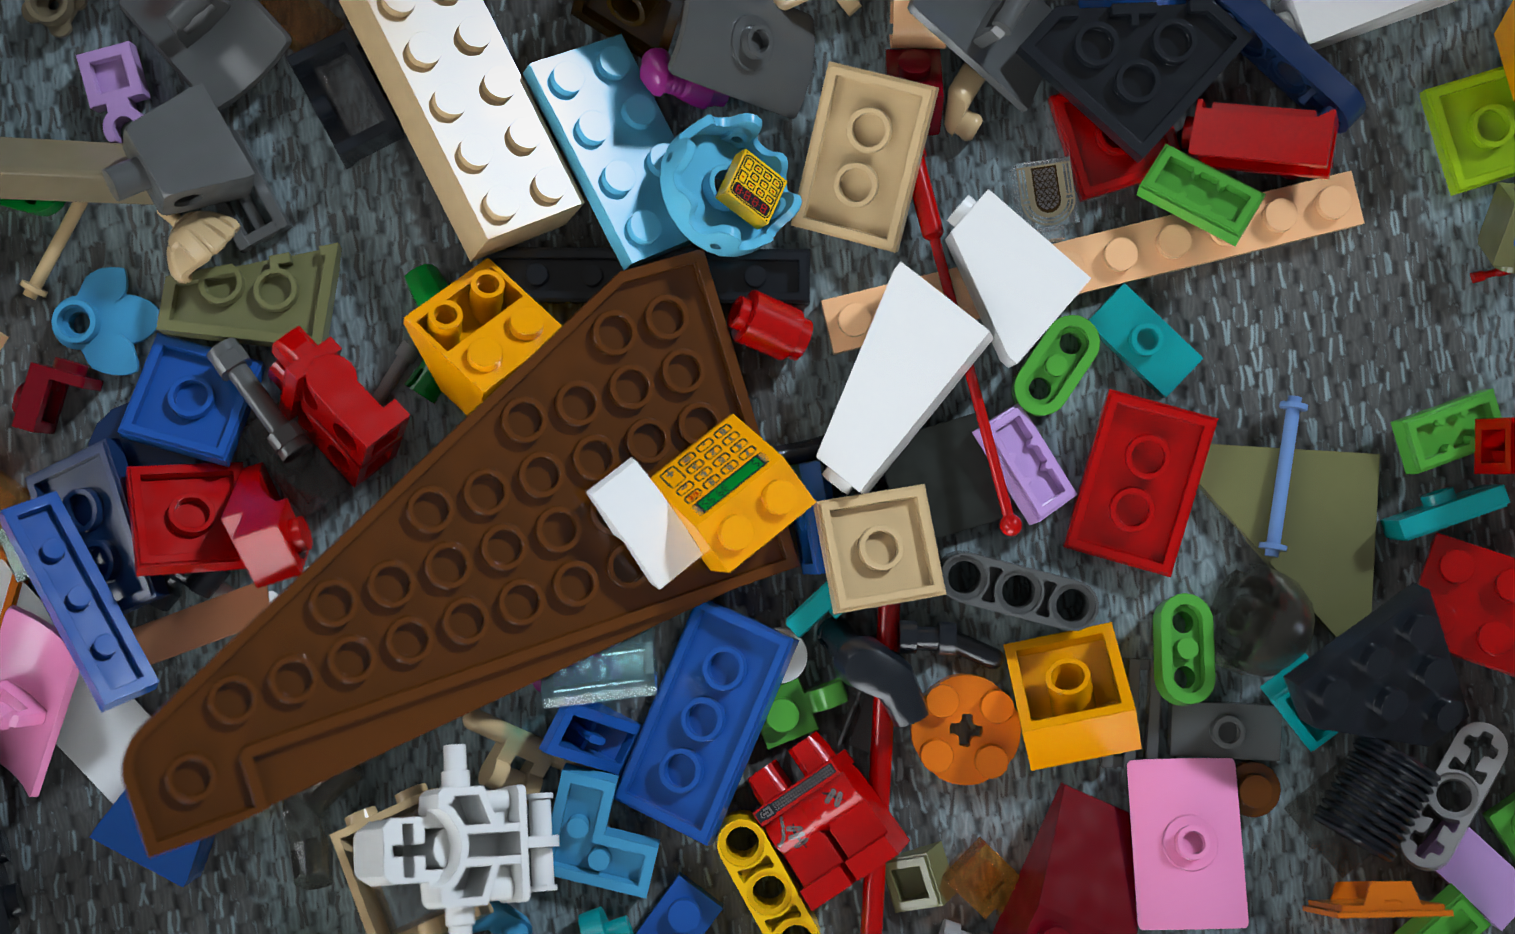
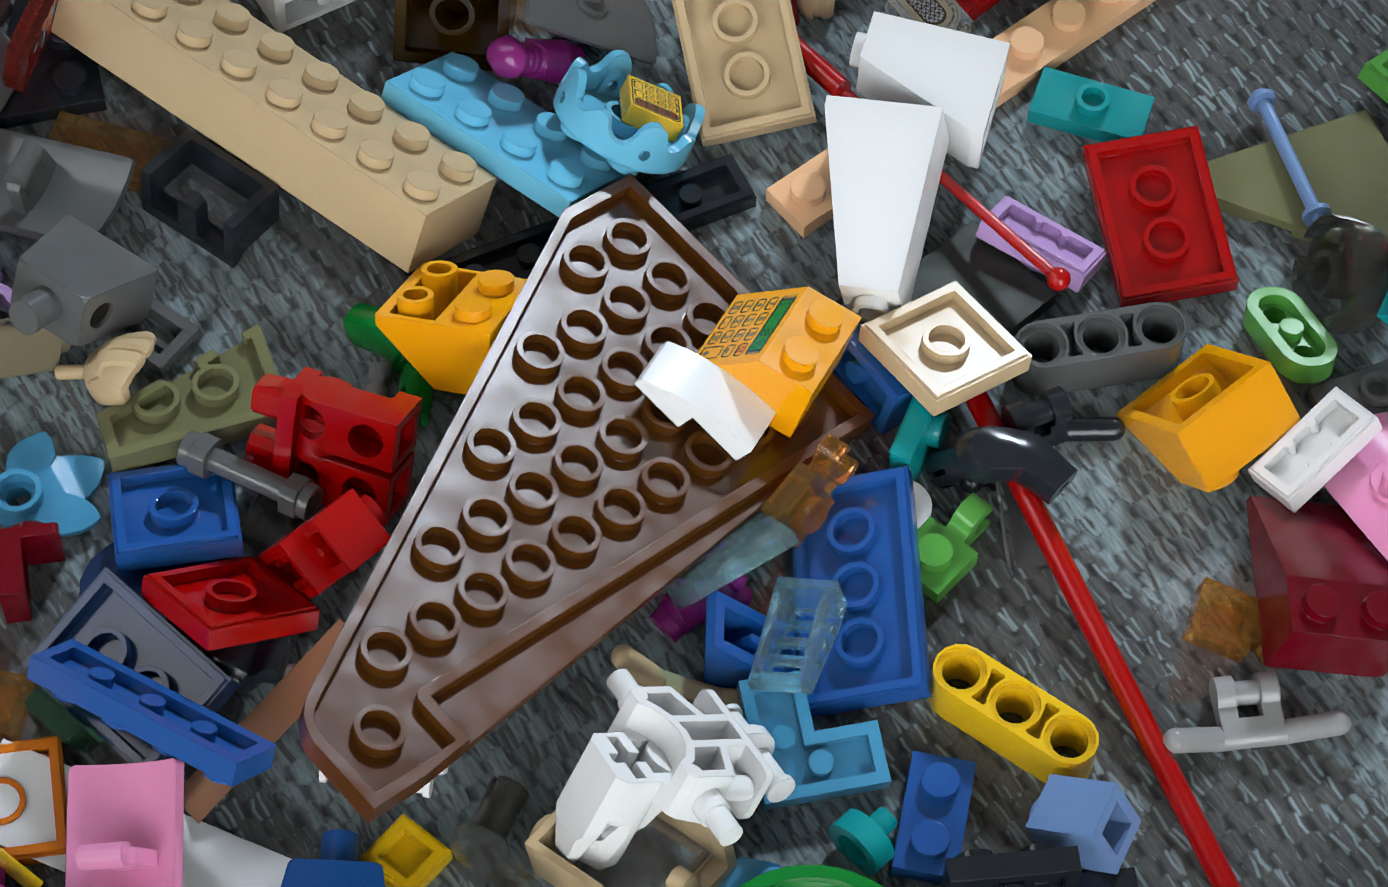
camera: 25 degrees left, 30 degrees down
(608, 746) = (793, 598): none -> clear light blue slope
(691, 635) = (805, 495): none -> clear orange plate
(769, 326) = (730, 222): red brick -> none
(827, 821) = (1034, 615): red hips -> none
(917, 878) = (1160, 656): olive slope -> none
(990, 709) = (1111, 528): orange plate -> none
(1055, 367) = (1021, 159): bright green plate -> none
(1137, 780) = (1315, 449): none -> white plate

